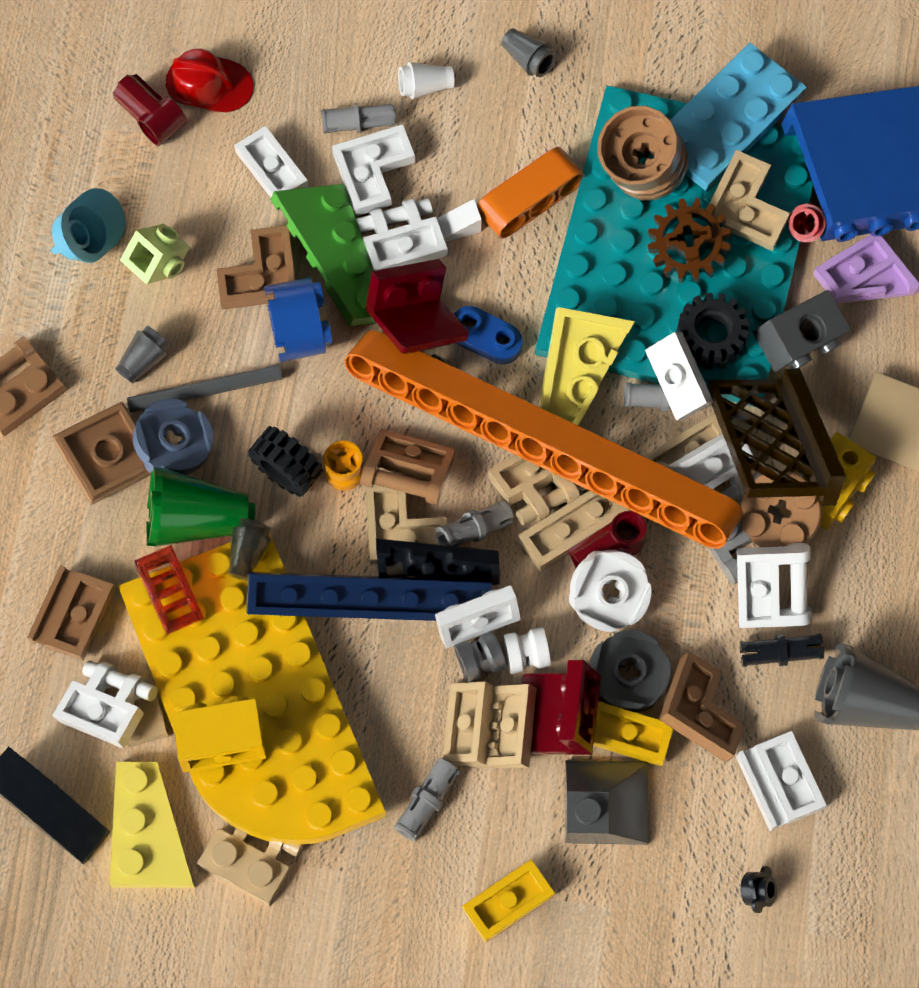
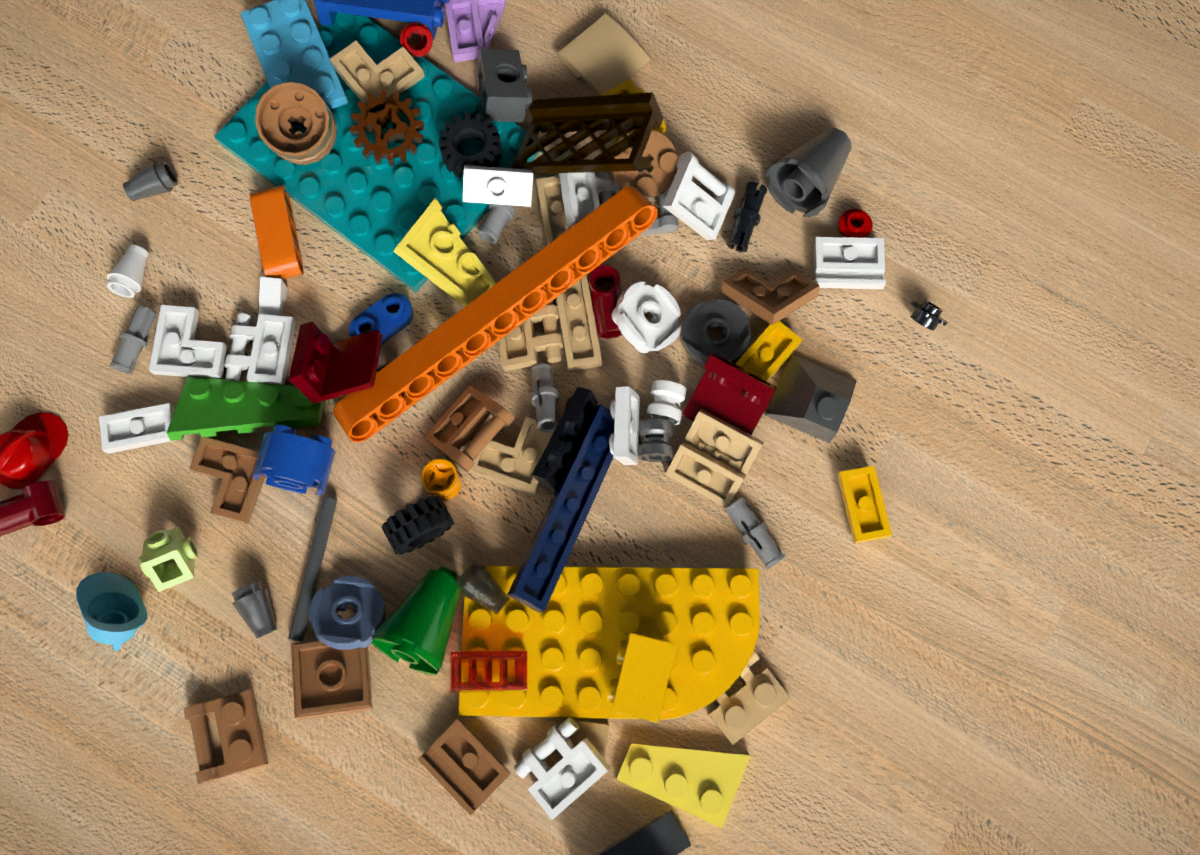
camera: 65 degrees left, 5 degrees up
(827, 782) = (848, 230): none -> red plate

